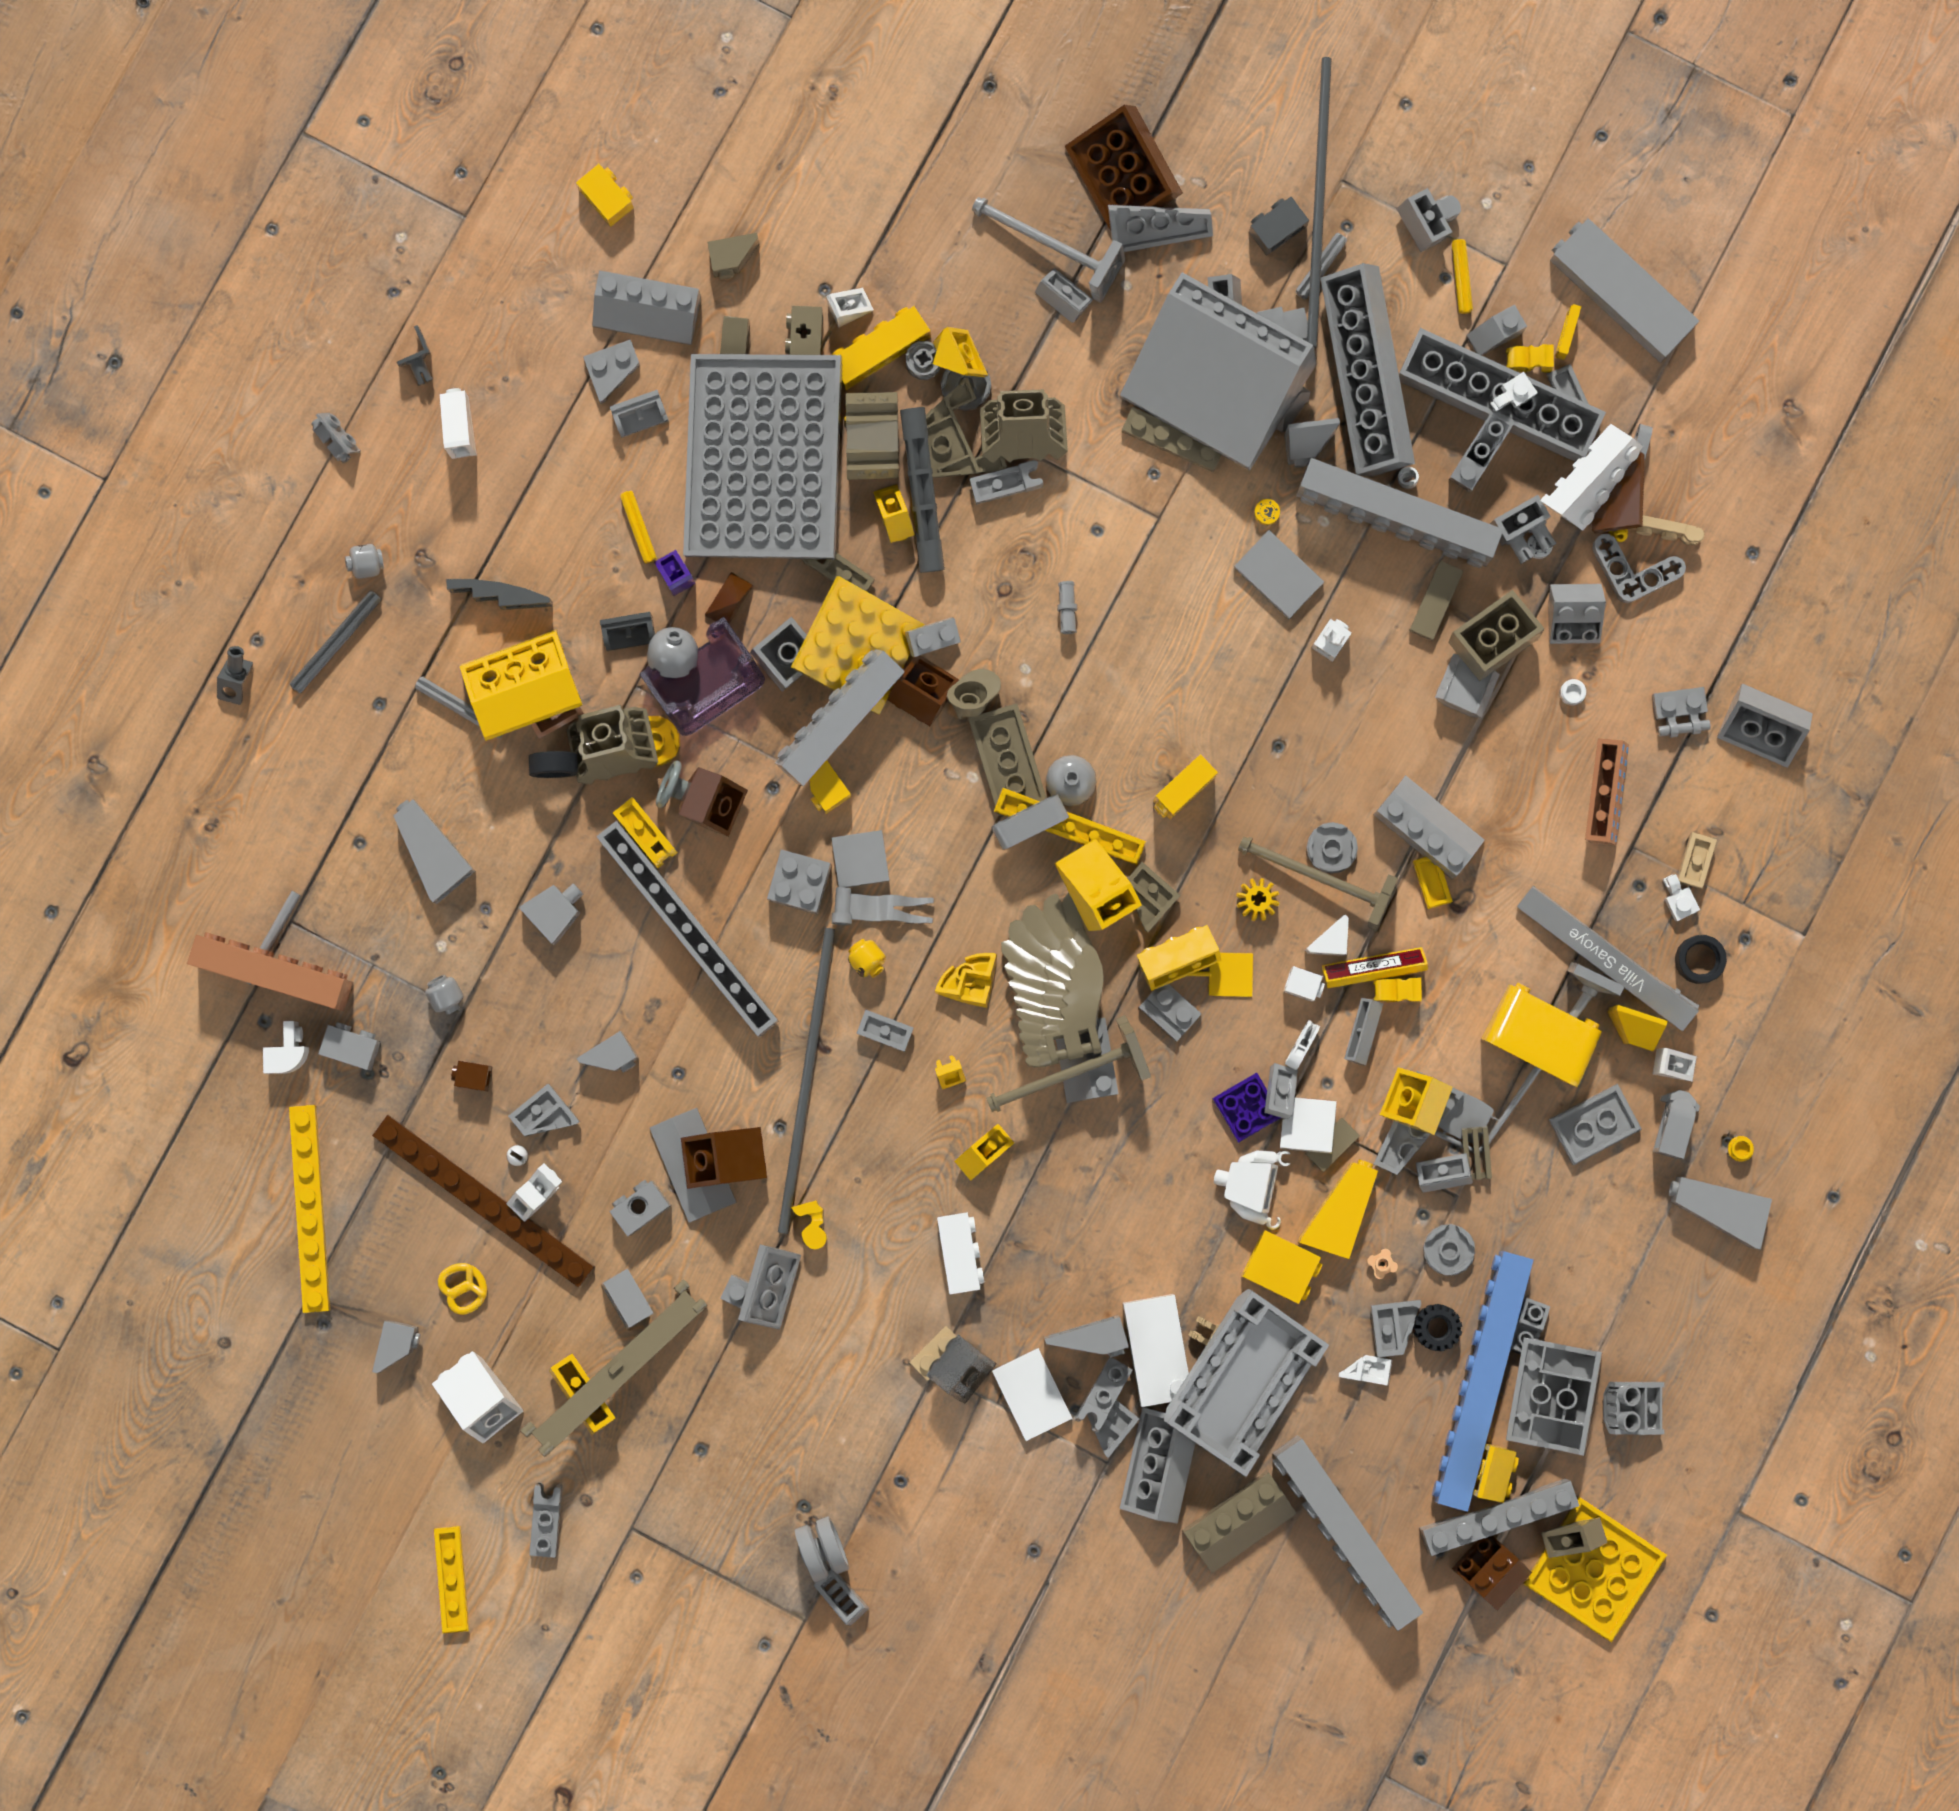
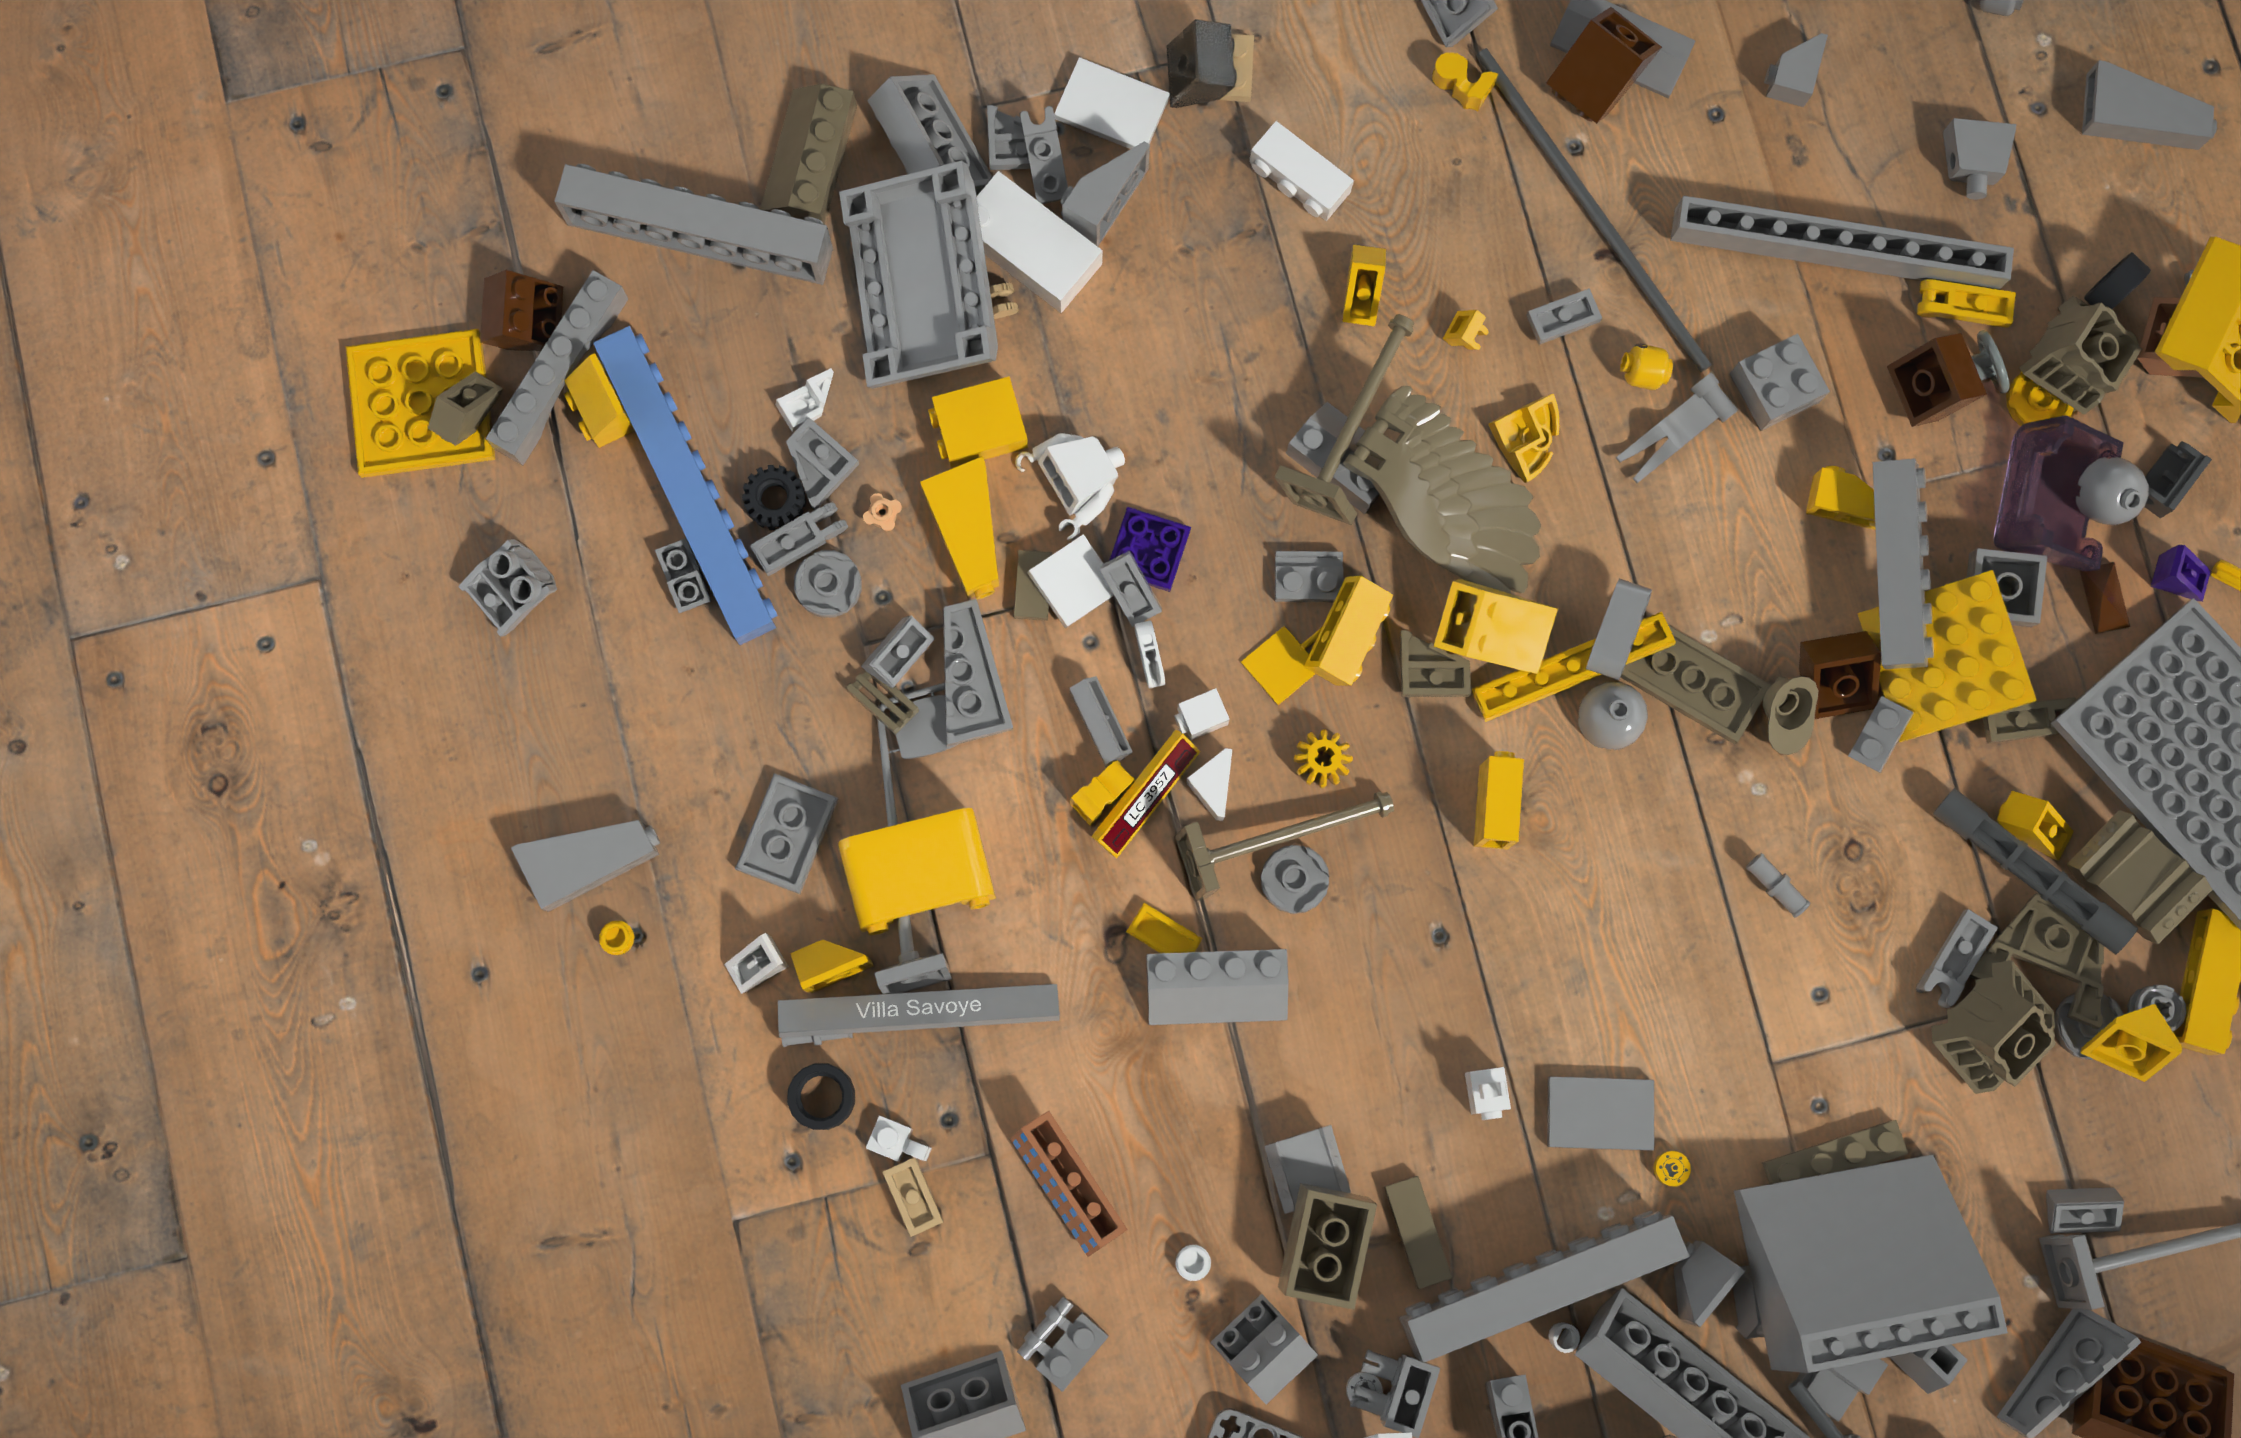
camera: 135 degrees right, 5 degrees down
(860, 859) = (1740, 459): light grey tile -> none
(1416, 1100) = (988, 691): yellow slope -> none
(1447, 1291) = (796, 539): none -> light grey hinge
(1554, 1396) = (600, 527): light grey piece -> none
(1676, 1124) = (704, 902): light grey piece -> none

